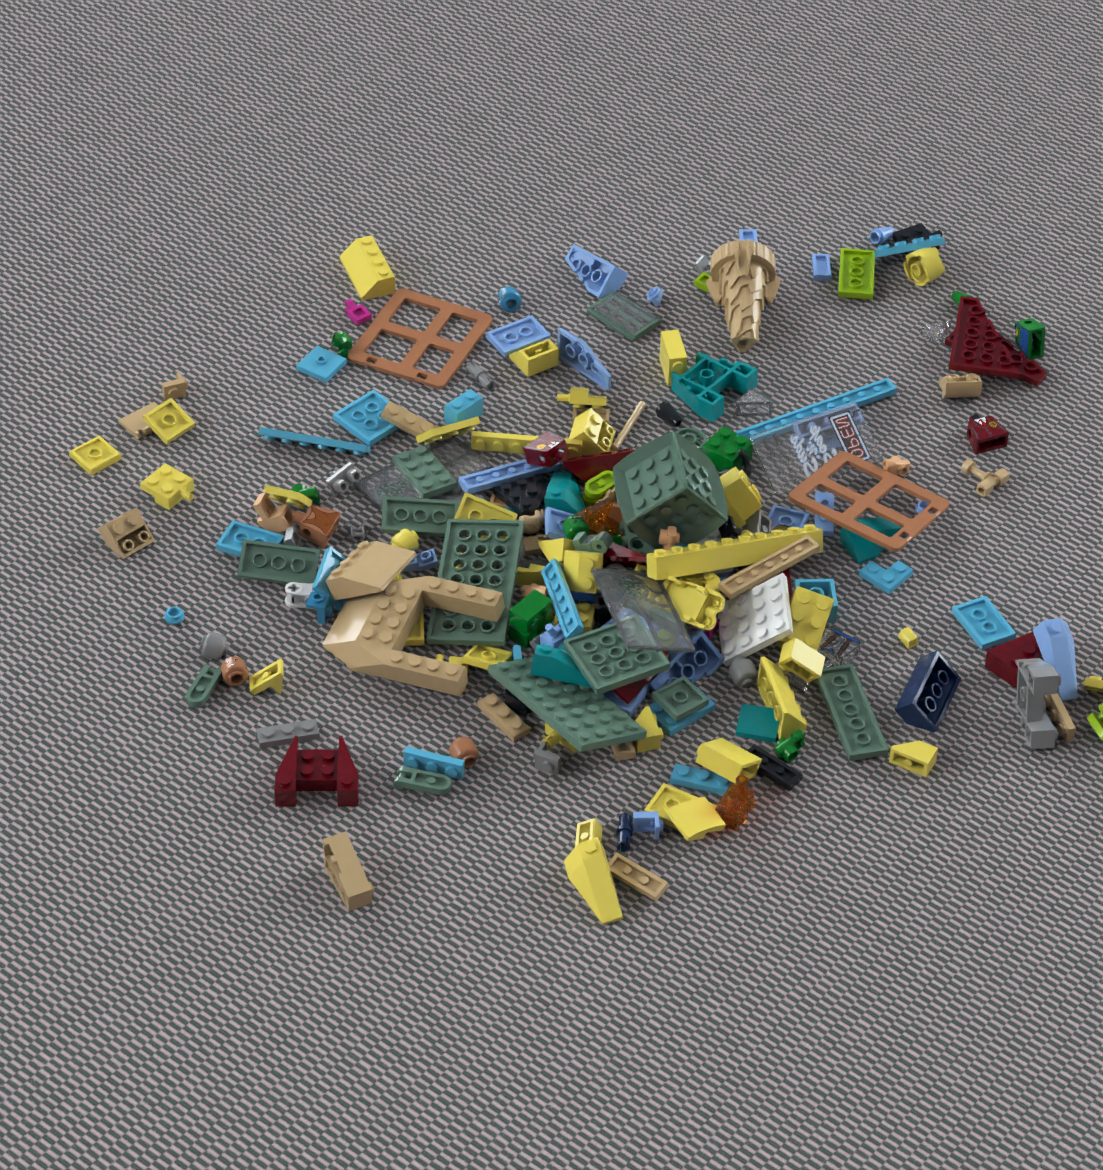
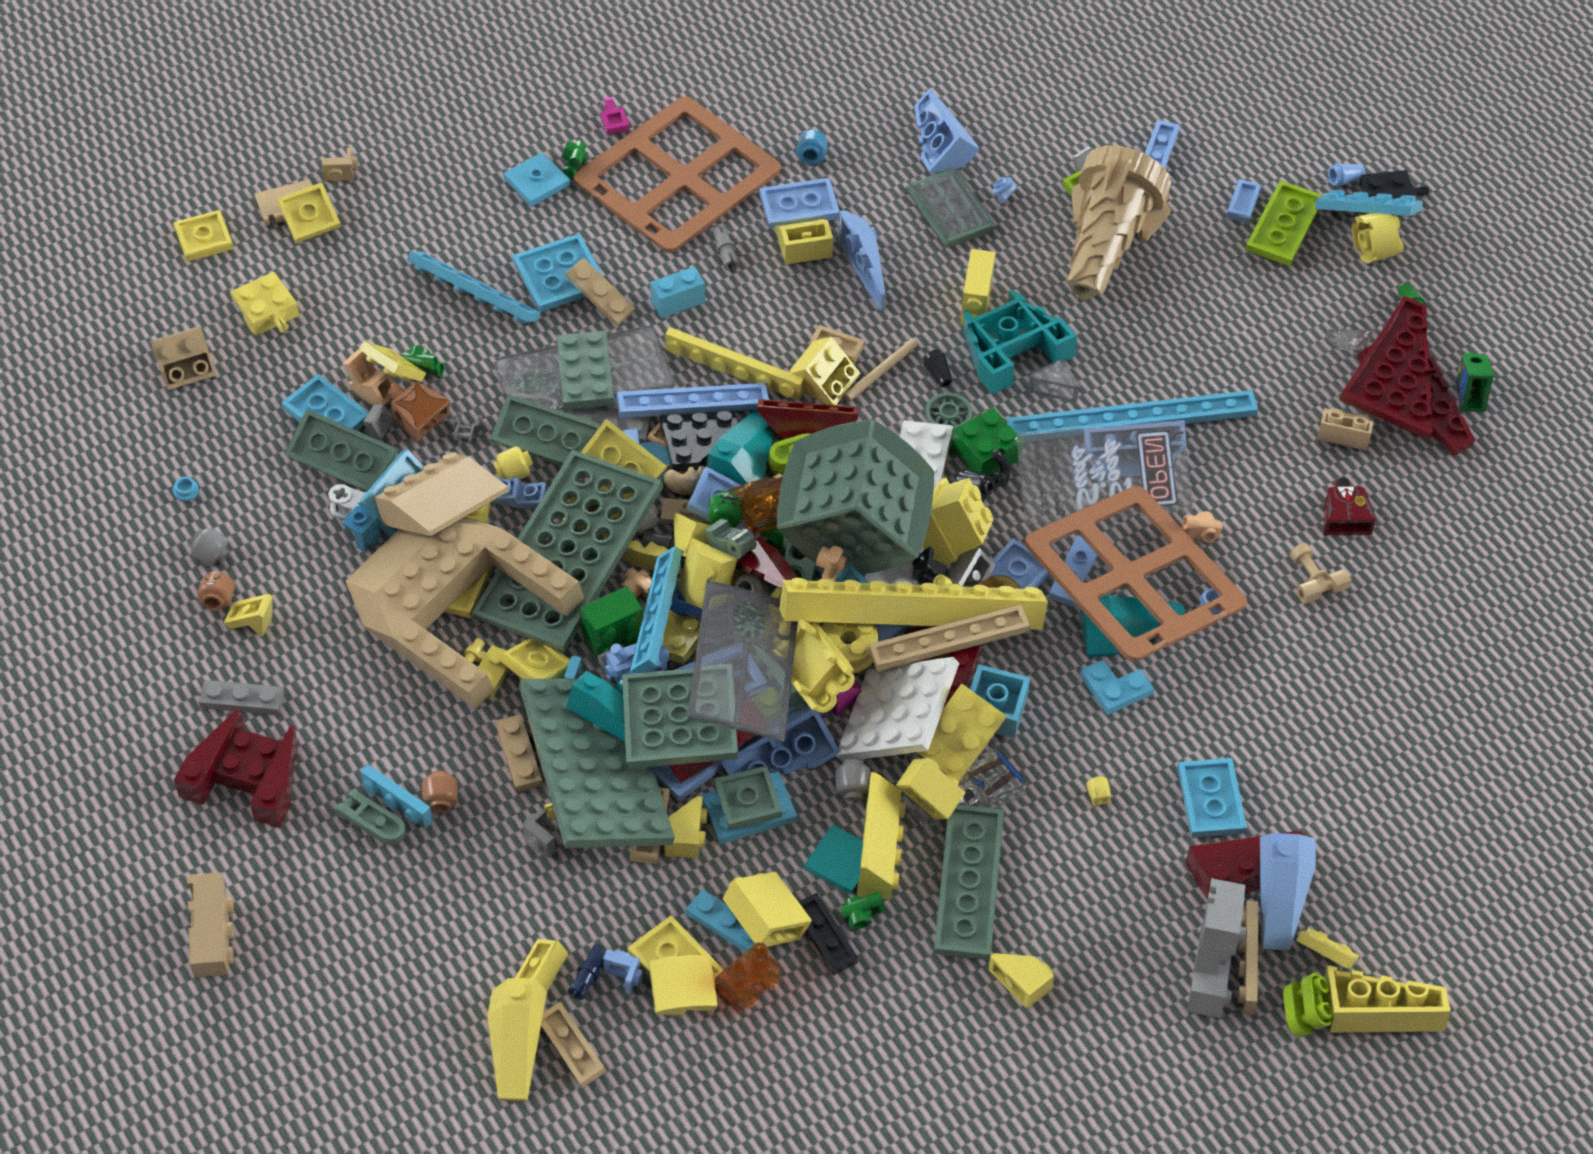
camera: 20 degrees right, 10 degrees up
(203, 686) = (170, 600): sand green plate -> none
(342, 479) = (479, 352): light grey hips -> none
(368, 269) = (655, 59): light yellow slope -> none
(447, 431) = (638, 320): light yellow plate -> none
(546, 450) = (744, 383): dark red torso -> none
(581, 397) = (834, 314): light yellow plate -> none
(928, 692) = (1085, 883): dark blue slope -> none

